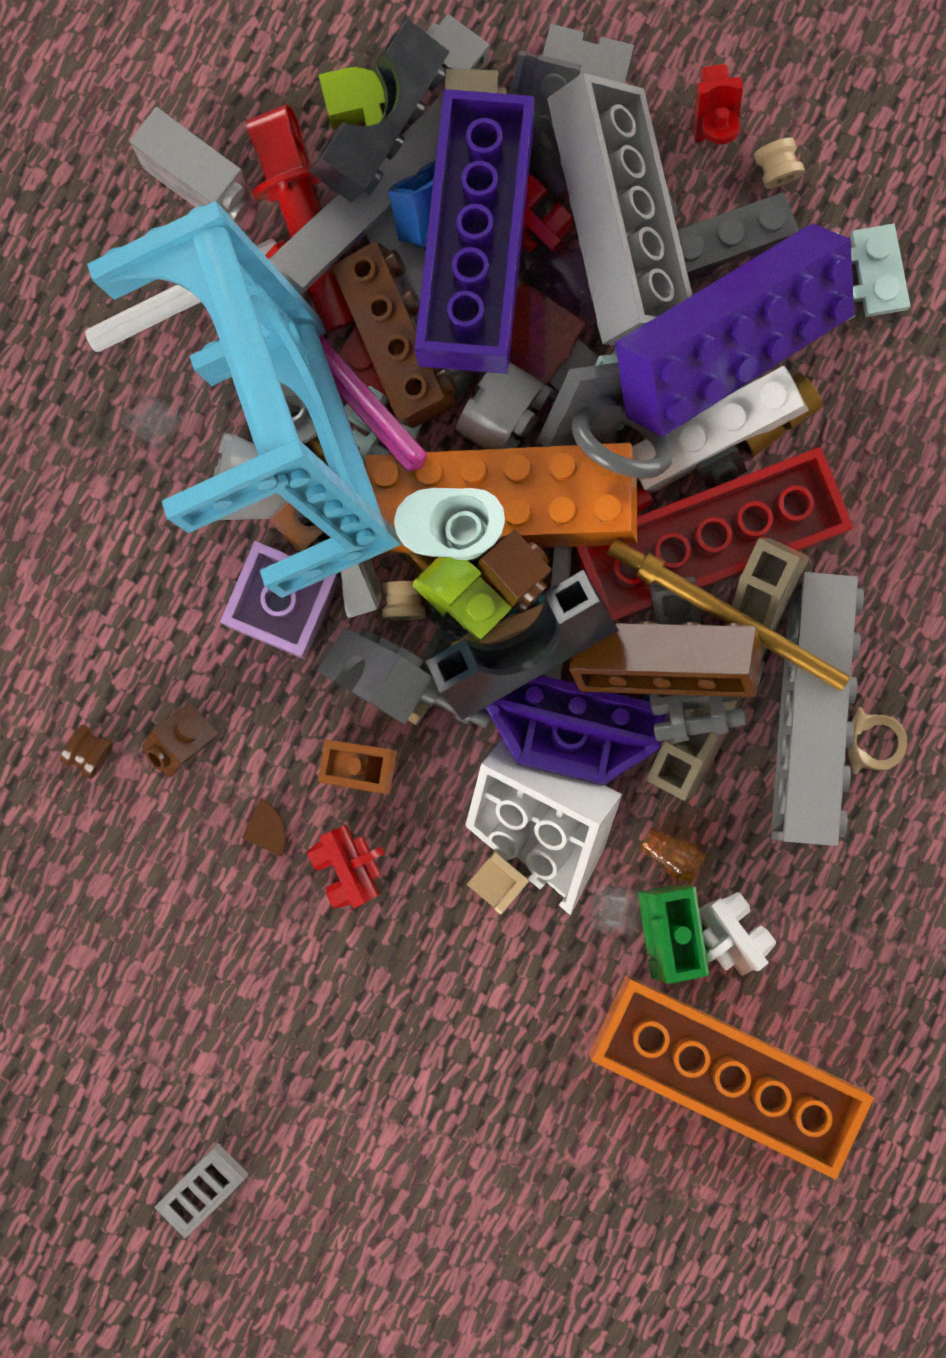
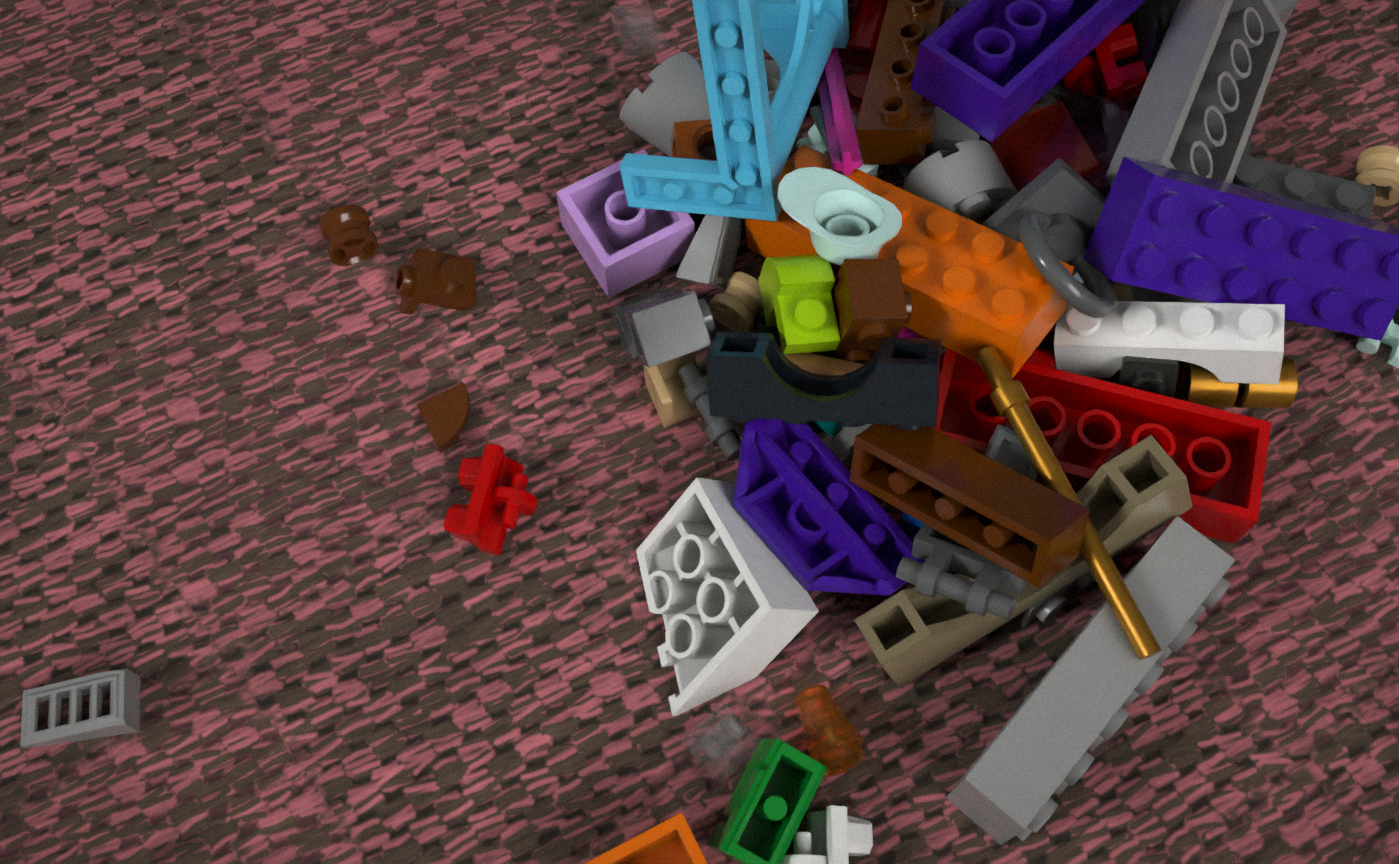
camera: 40 degrees right, 20 degrees down
(357, 766) = (580, 415): dark orange slope -> none
(498, 882) = (625, 623): tan panel -> none
(717, 106) = (1350, 89): red hips -> none
(859, 758) = (1106, 784): tan piece -> none

